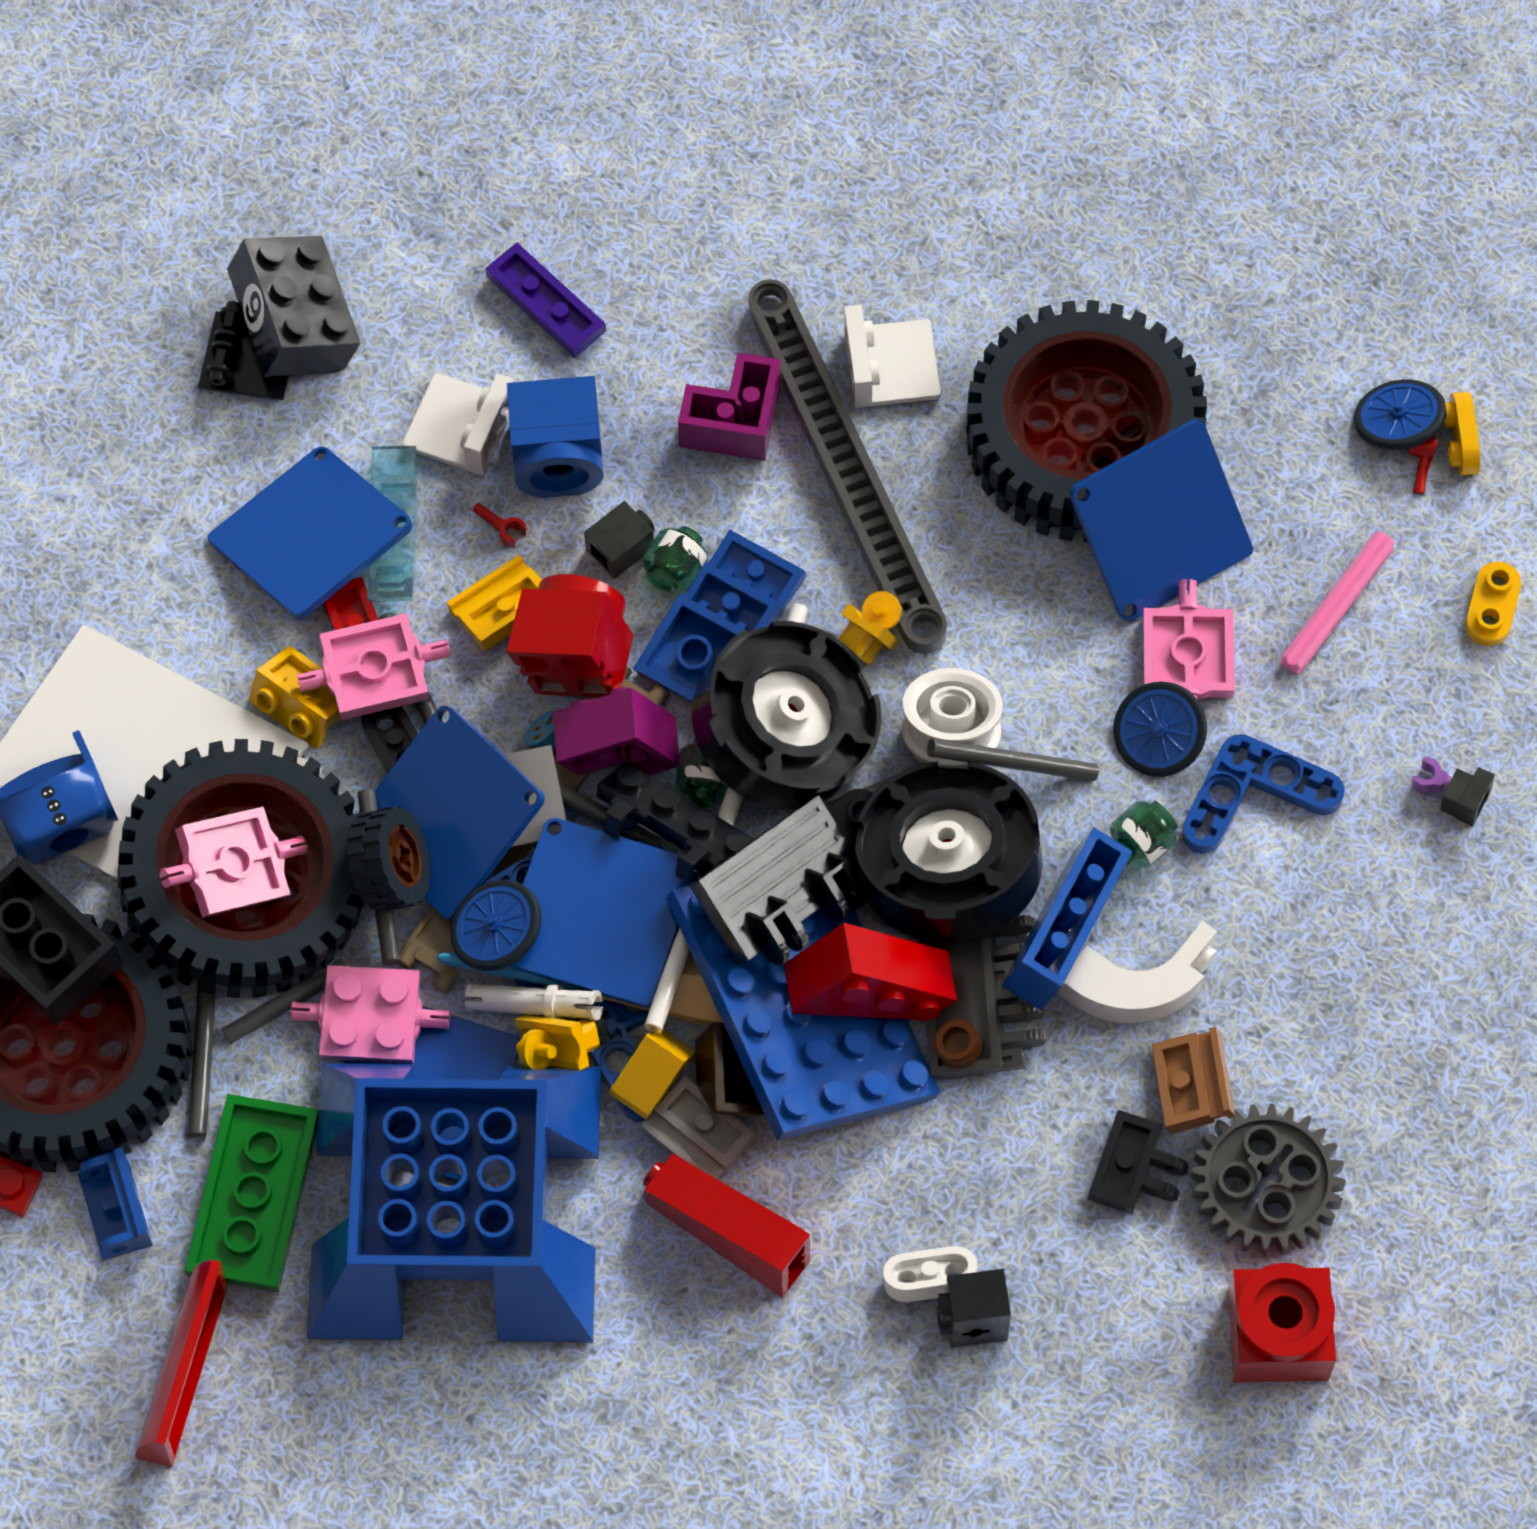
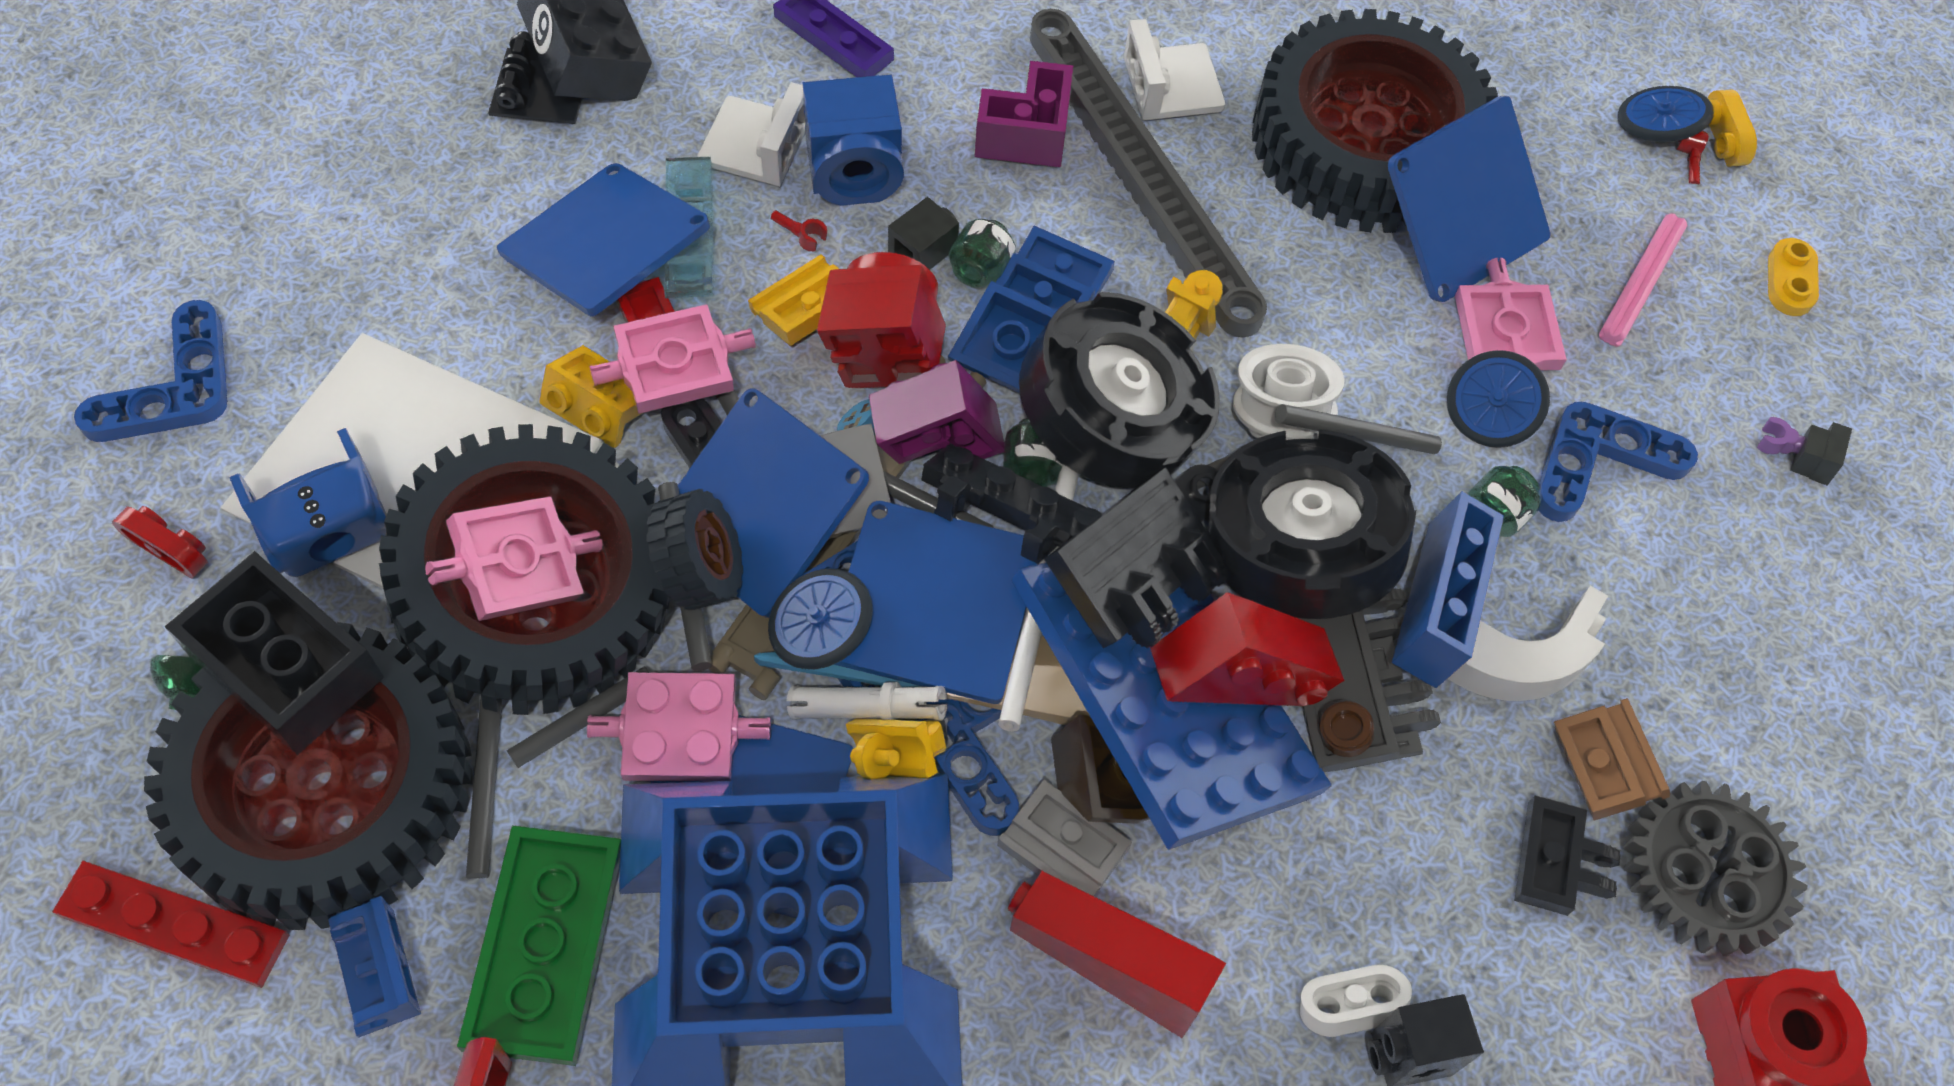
camera: 10 degrees left, 5 degrees down
(651, 1072) = (1007, 779): yellow slope -> none

